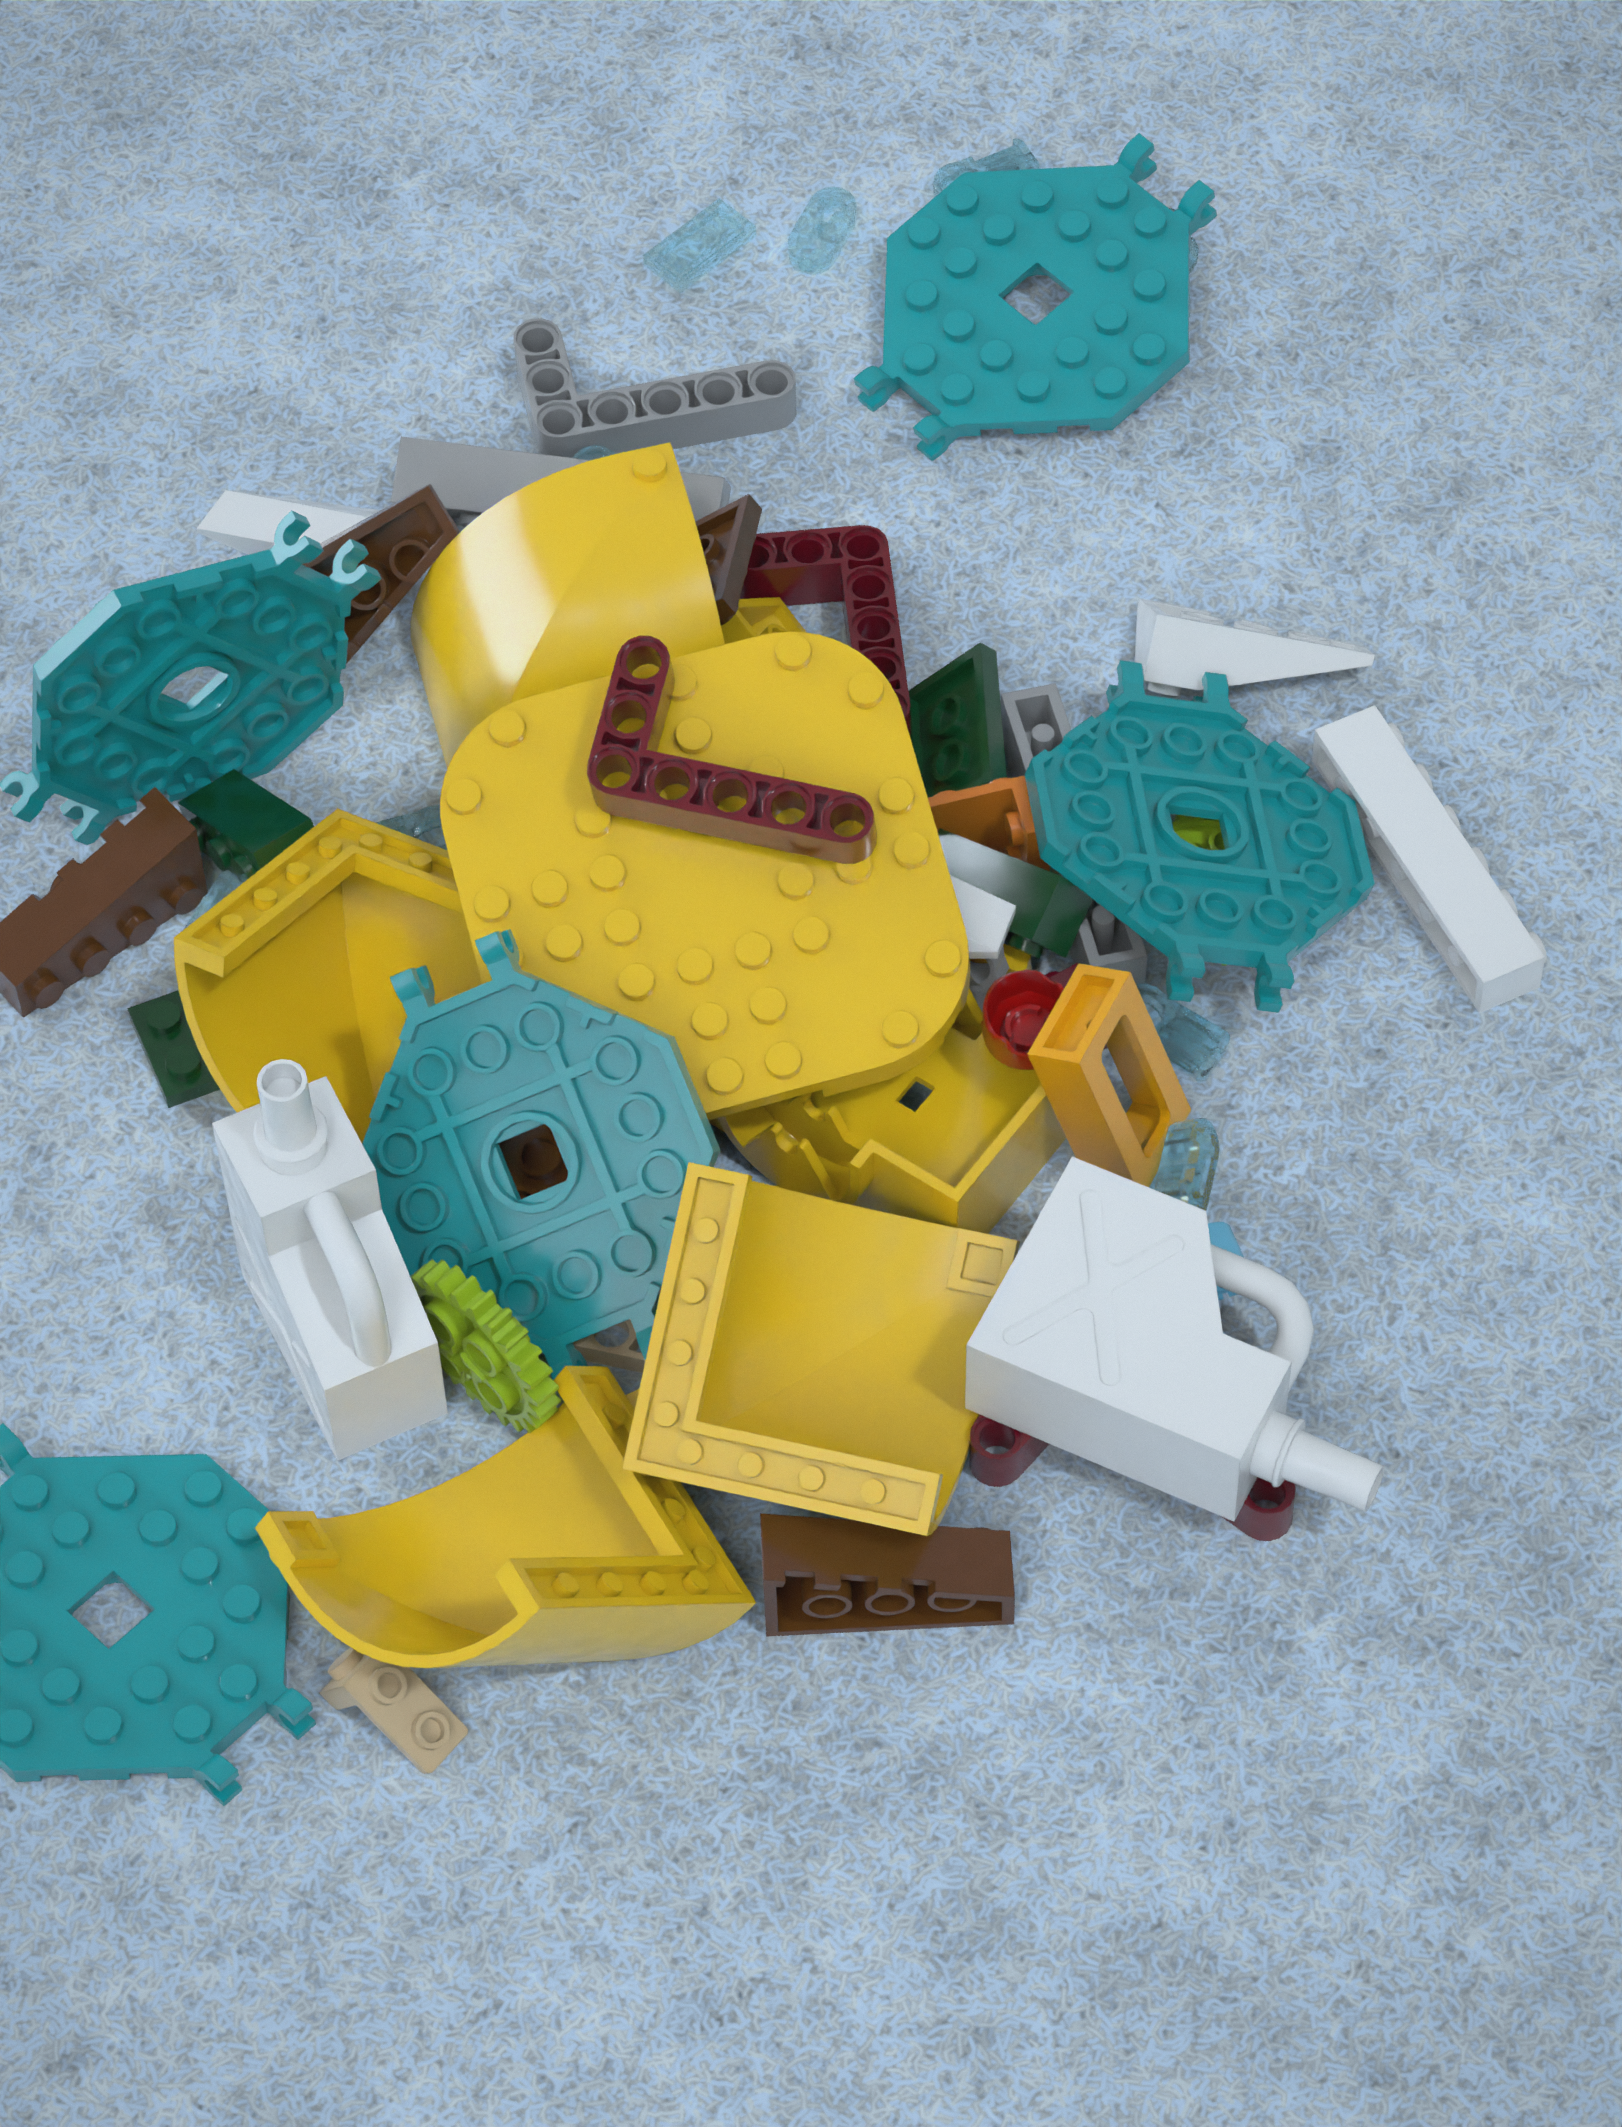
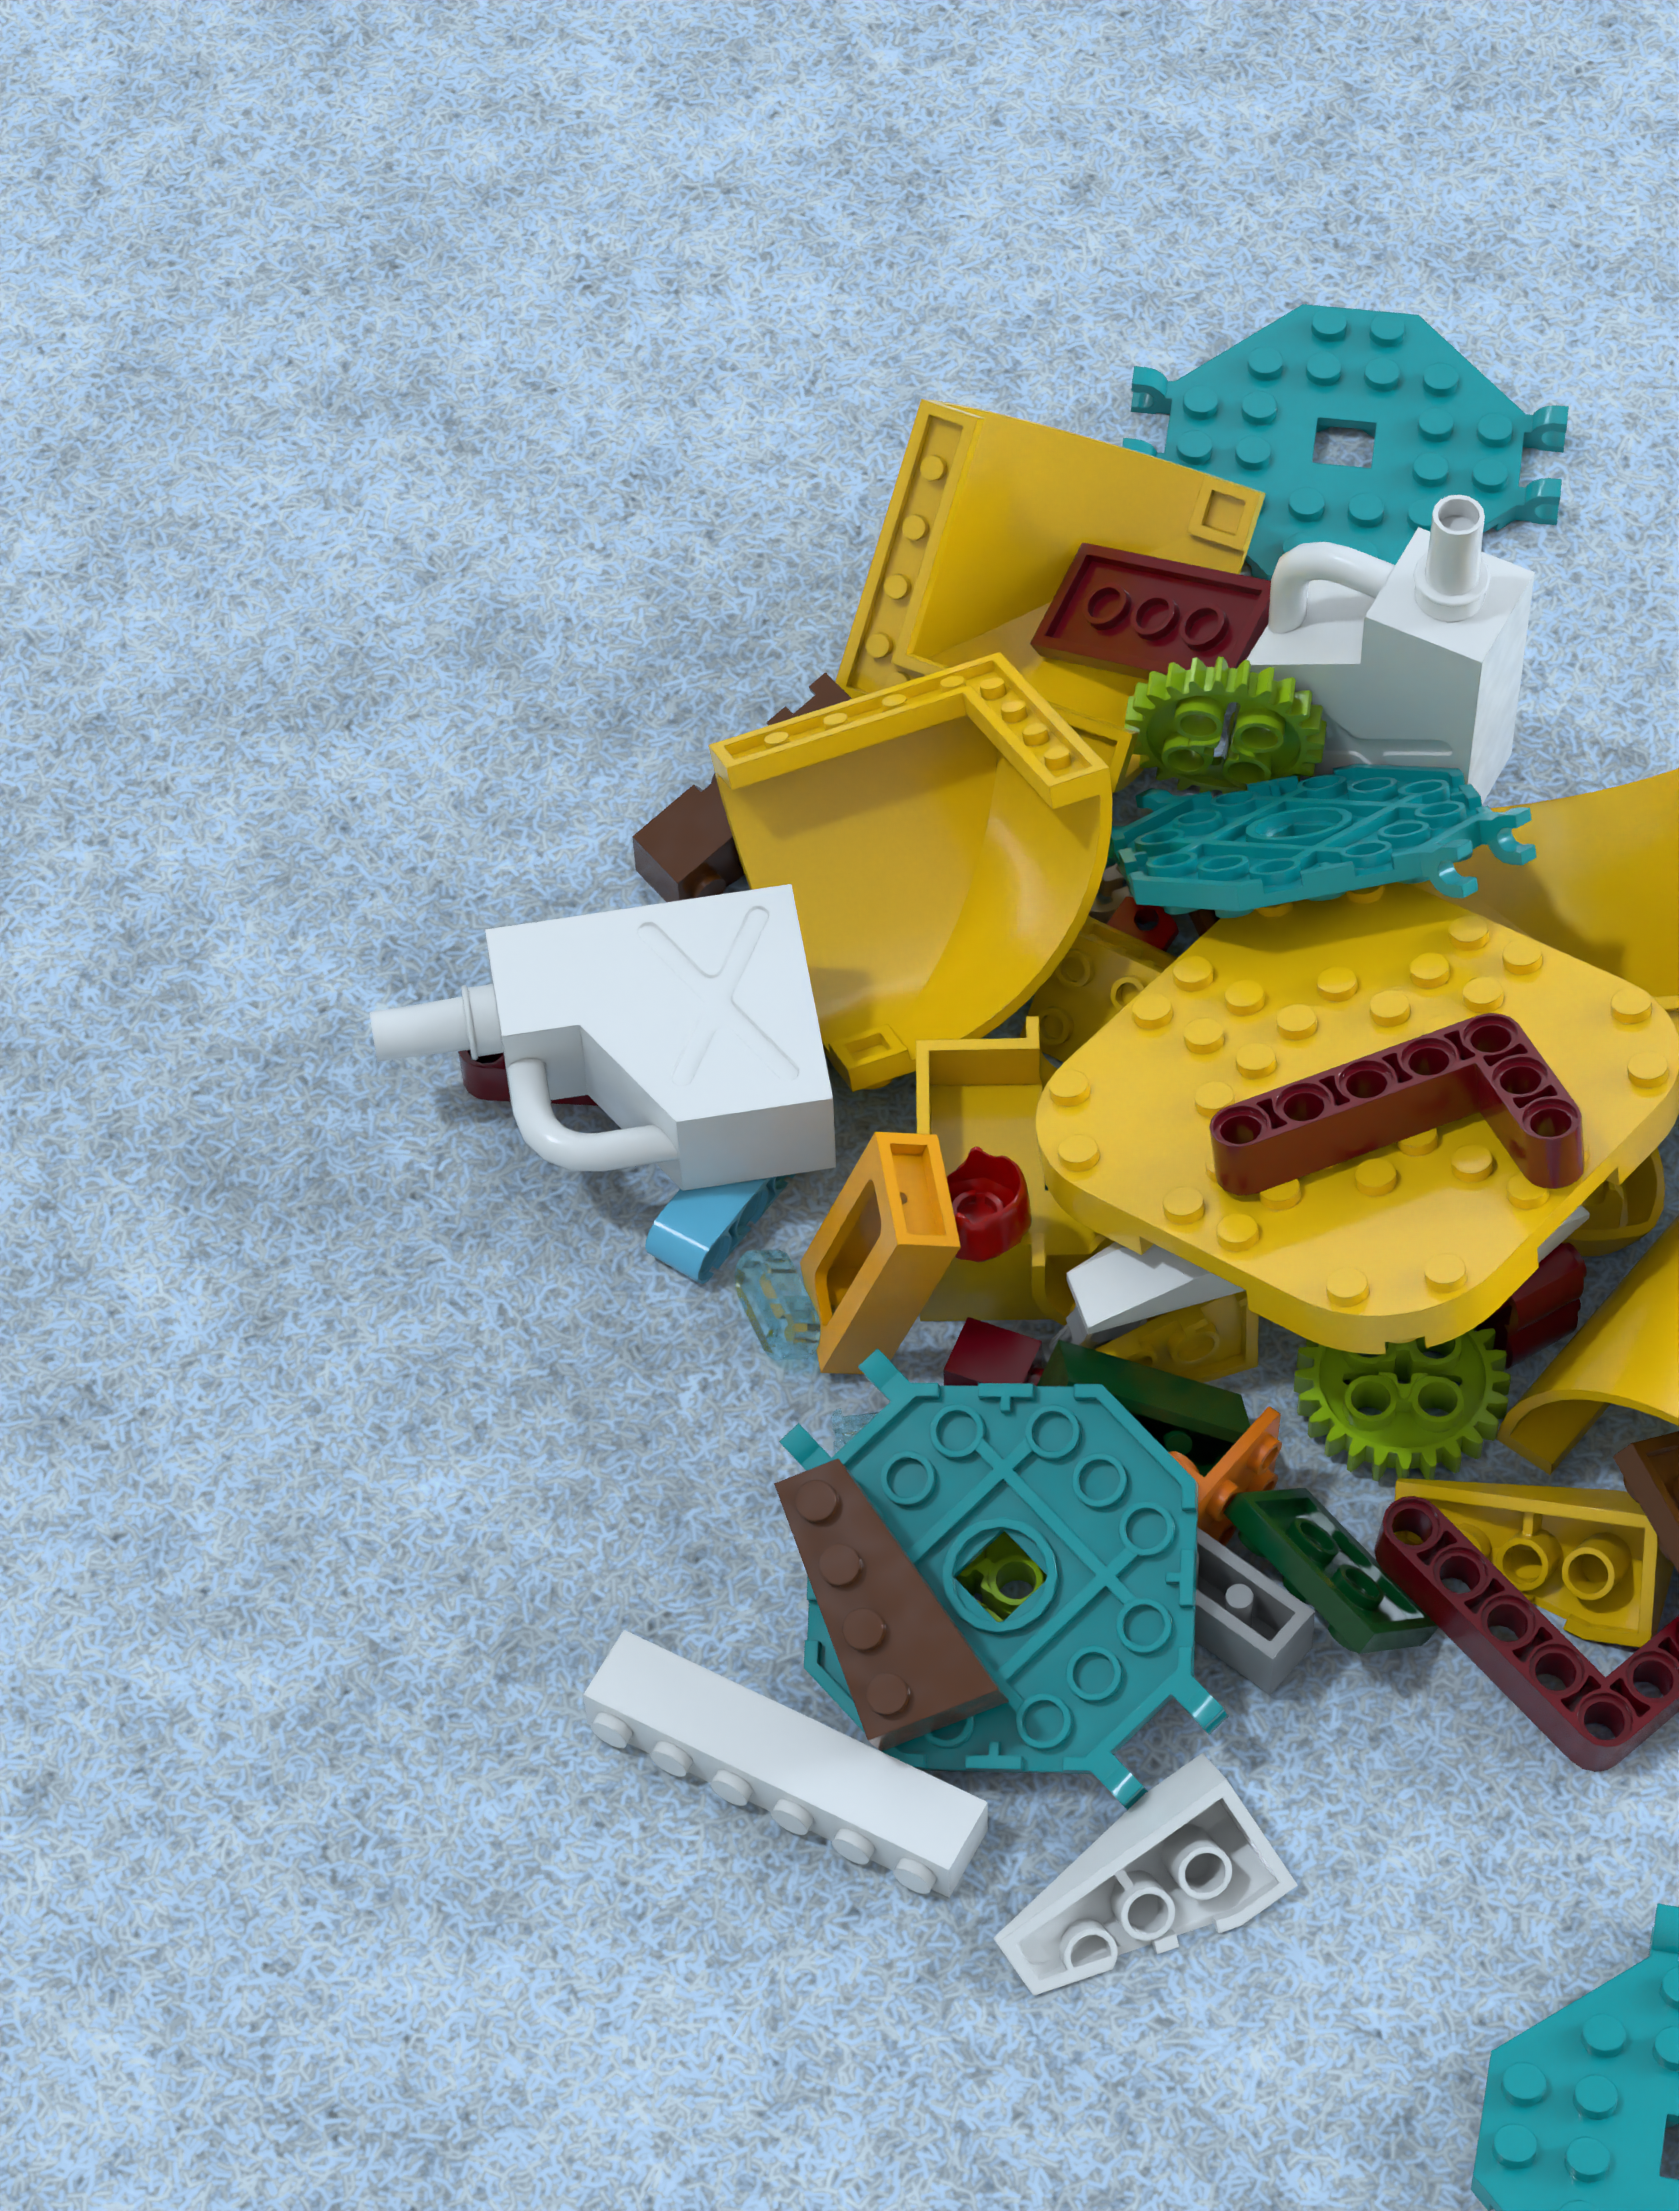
camera: 145 degrees right, 0 degrees up
(437, 1482) = (1148, 611): none -> dark red plate
(1309, 828) = (889, 1630): none -> reddish brown wedge

